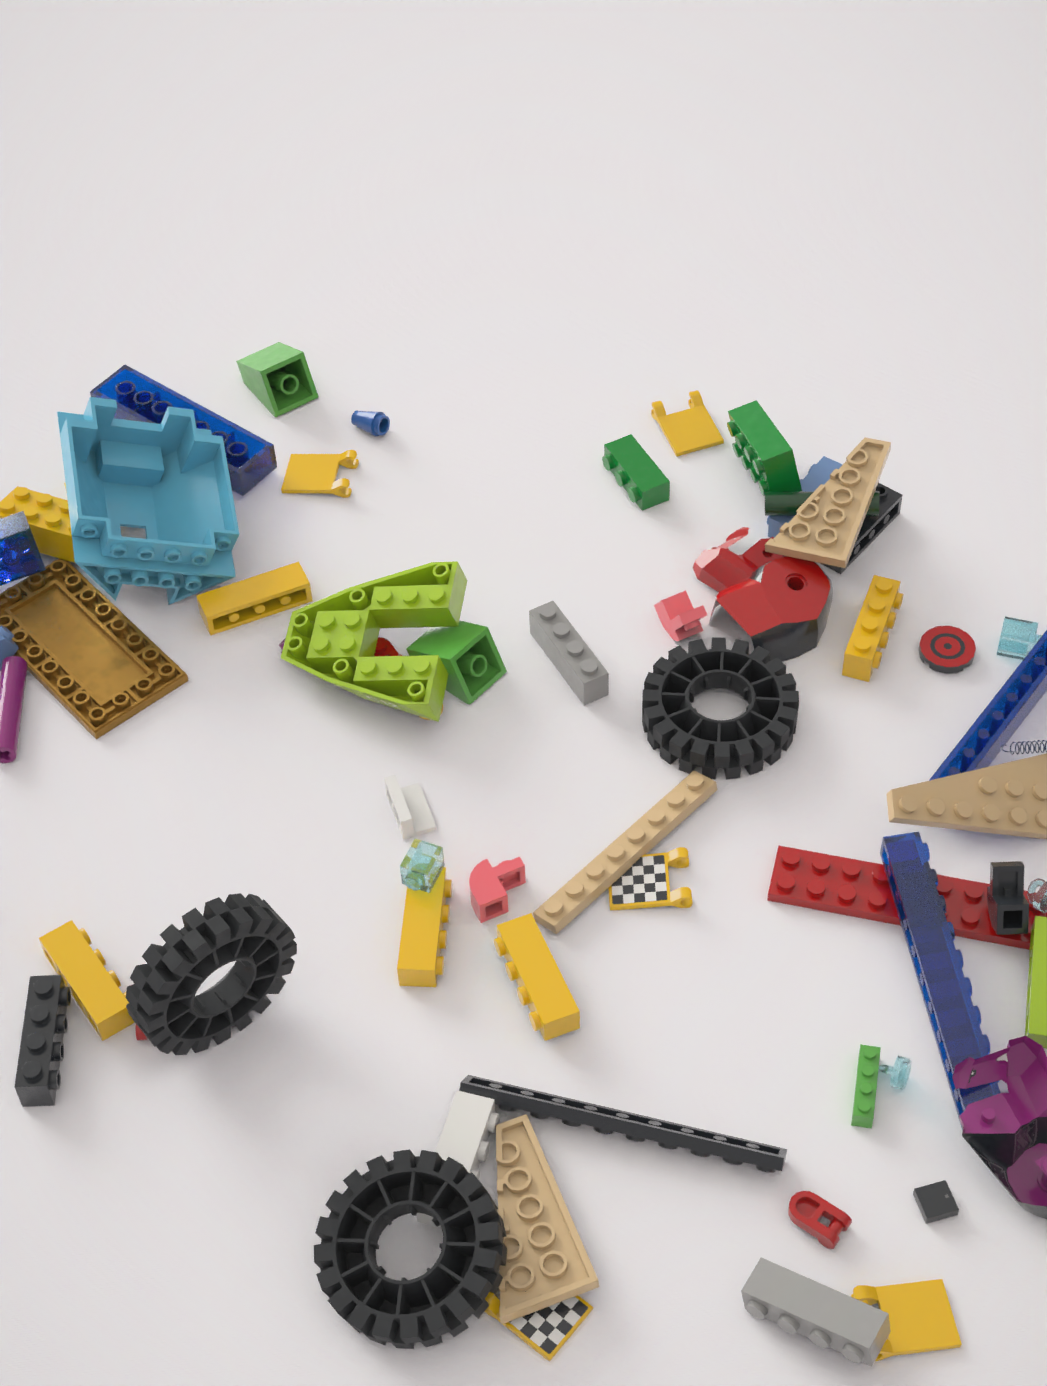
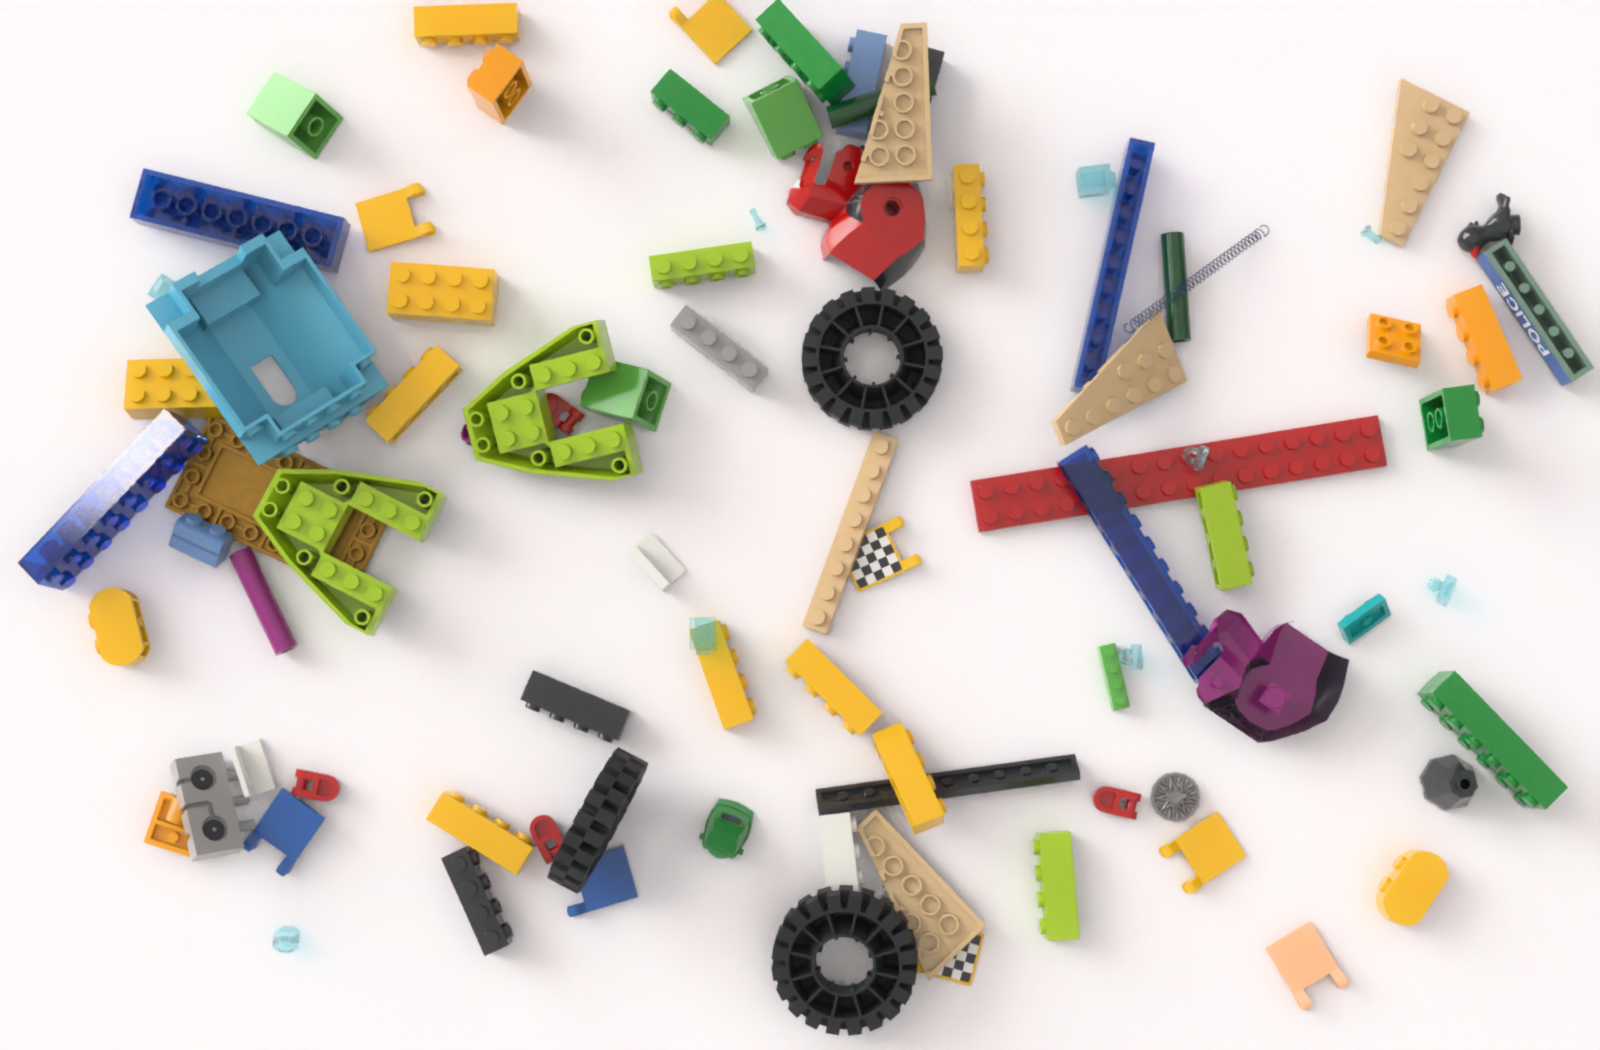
camera: 30 degrees left, 35 degrees up
(105, 640) = (306, 515): none -> lime piece
(182, 1080) = (608, 883): none -> blue flag
(232, 874) = (575, 705): none -> black brick
(328, 533) = (442, 293): none -> yellow brick
(348, 1076) = (727, 829): none -> green helmet
(371, 421) = (413, 136): blue cone -> none
(465, 362) = (467, 24): none -> yellow brick
(468, 395) = (499, 83): none -> light orange brick
(490, 884) = (755, 619): coral brick -> none
(579, 1086) = (908, 778): none -> yellow brick
(586, 584) = (702, 264): none -> lime brick
(659, 577) = (759, 224): none -> clear light blue piece
(679, 616) = (799, 270): coral brick -> none
(706, 1280) = (1057, 885): none -> lime brick
(721, 498) = (783, 117): none -> bright green slope
(816, 1312) = (1143, 882): light grey brick -> none
(893, 1241) = (1175, 797): none -> flat silver wheel
(935, 1201) = (1194, 752): black tile -> none
(947, 649) = (1036, 211): red tile -> none
(1006, 898) = (1173, 478): black brick -> none

